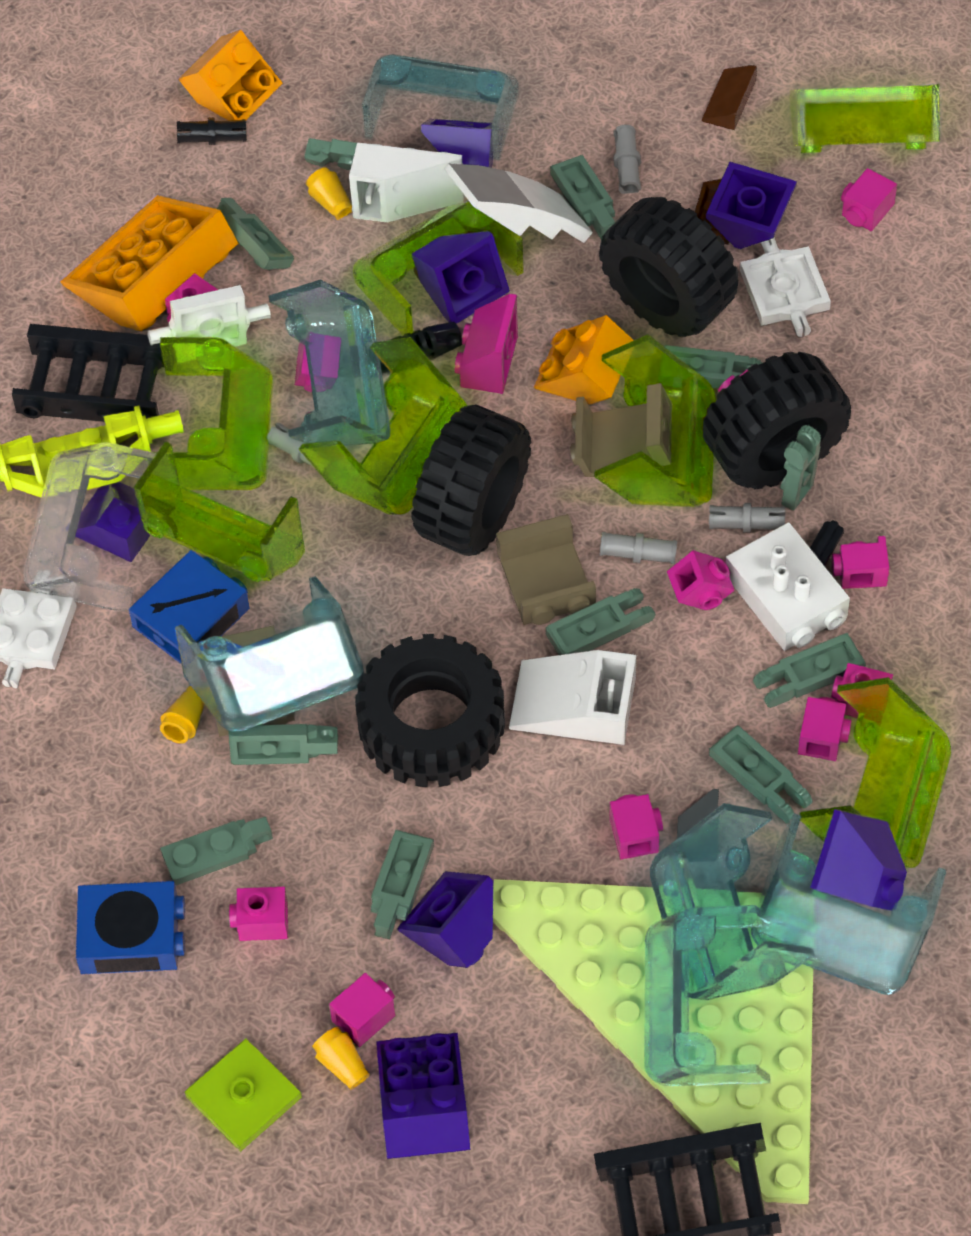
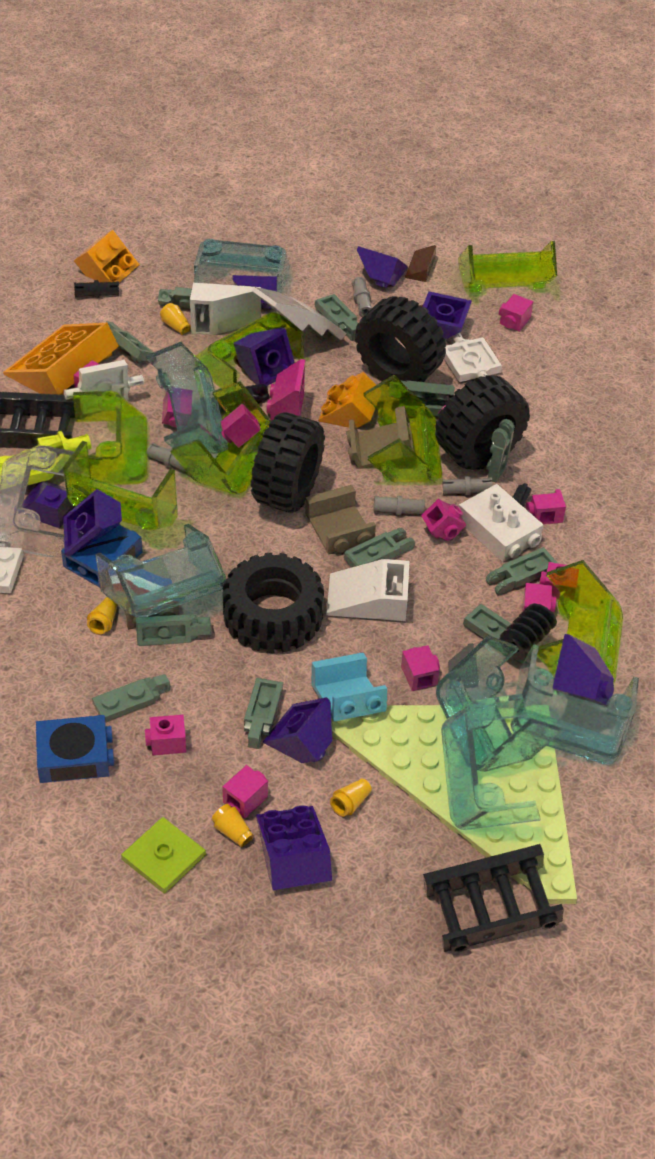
camera: 10 degrees left, 10 degrees down
(172, 566) = (90, 521): none -> dark purple slope
(409, 403) = (239, 426): none -> dark pink brick
(509, 1025) = (350, 797): none -> yellow cone
(524, 855) = (347, 687): none -> medium azure panel
(663, 105) = (382, 268): none -> dark purple slope
(693, 347) = (440, 391): none -> sand green hinge
(795, 779) = (529, 629): none -> black piece

